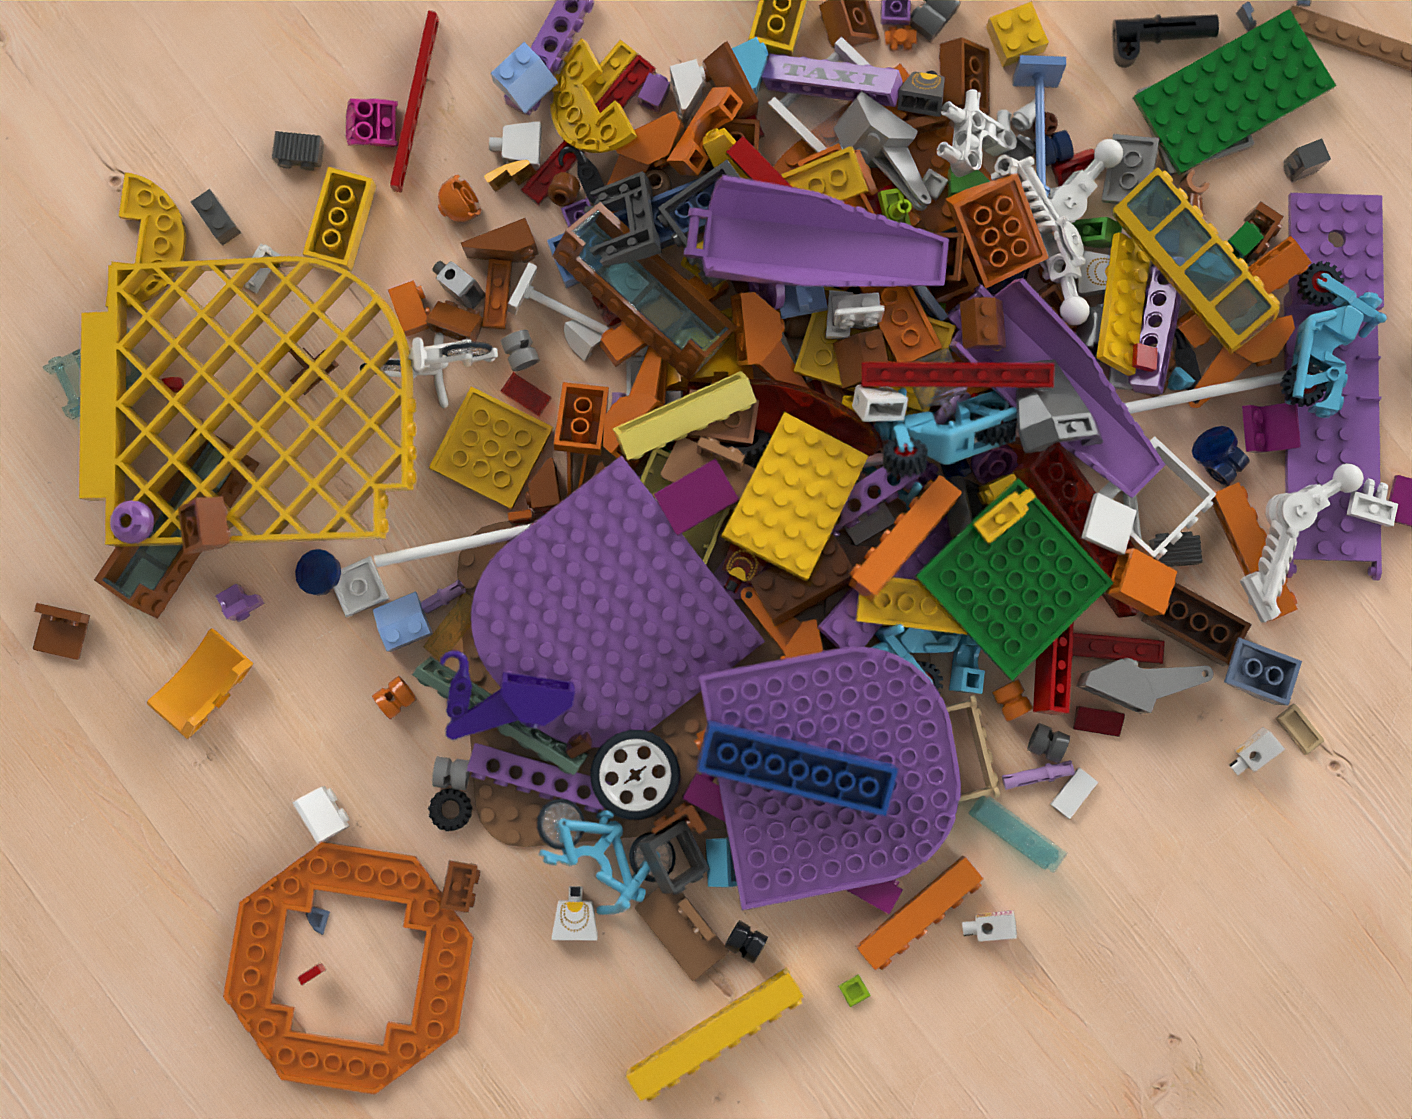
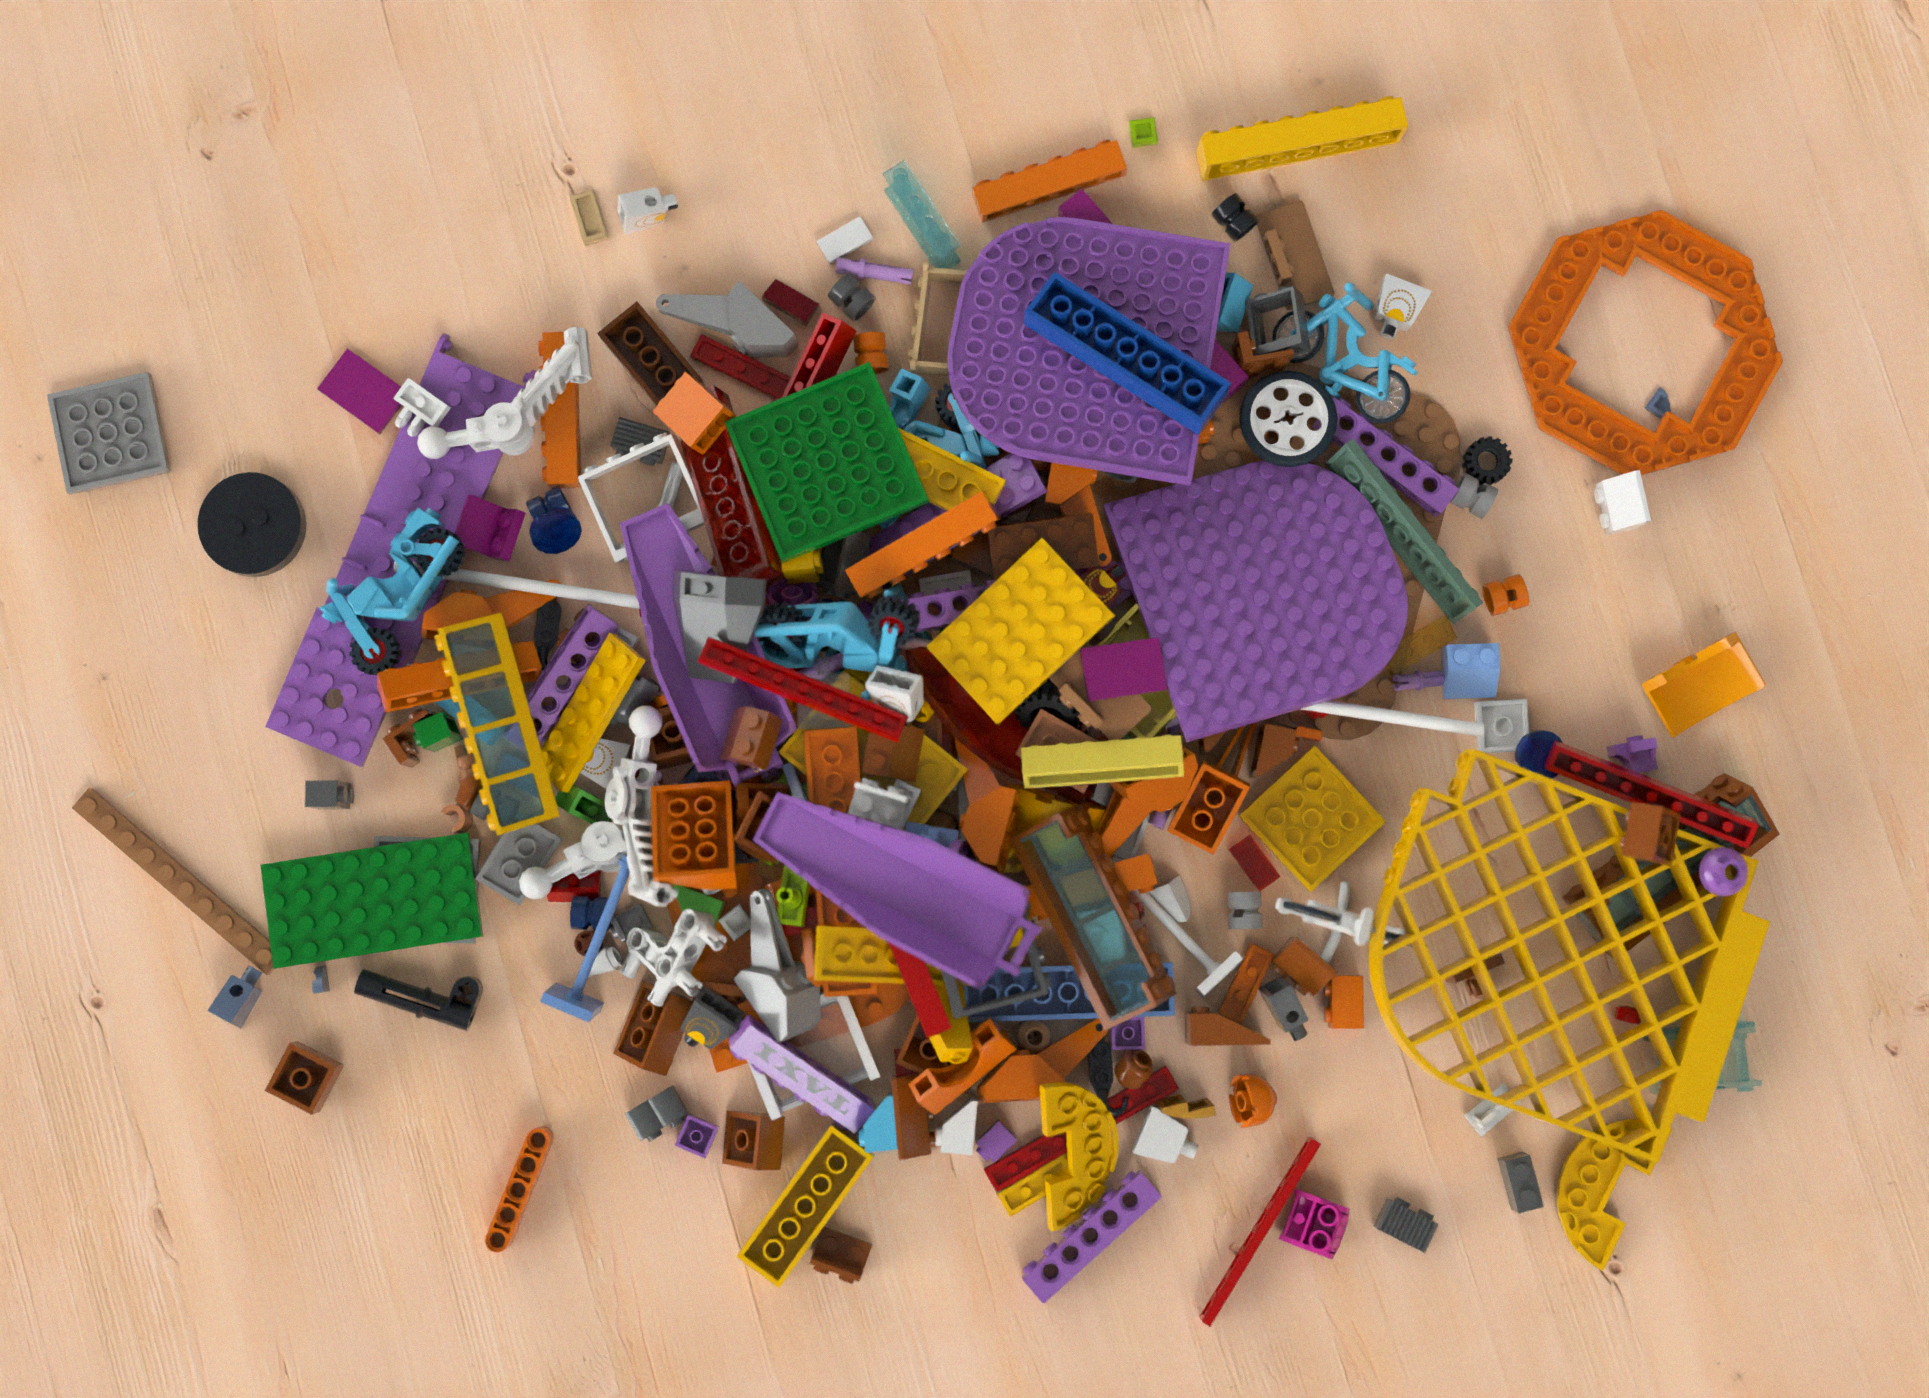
camera: 155 degrees left, 0 degrees up
(60, 631) = (1830, 796): dark orange bracket -> none
(214, 568) = (1645, 790): none -> red brick
(311, 973) = (1686, 347): red tile -> none
(340, 218) = (1388, 1127): yellow brick -> none
(459, 886) = (1506, 379): dark orange bracket -> none
(521, 698) = (1378, 532): dark purple slope -> none
(524, 77) = (1134, 1205): light blue slope -> none
(578, 744) = (1335, 469): reddish brown plate -> none
(643, 239) = (1076, 966): dark grey wedge -> none
(903, 36) = (698, 1100): orange piece -> none
(1003, 515) = (813, 526): yellow hinge -> none
(1003, 926) = (981, 139): white torso -> none
(1017, 34) = (577, 1055): yellow brick -> none
(1109, 524) = (704, 483): white tile -> none
(1144, 357) = (593, 643): tile -> none
(1180, 380) = (561, 614): medium azure tile -> none
(1262, 672) = (605, 281): sand blue slope -> none

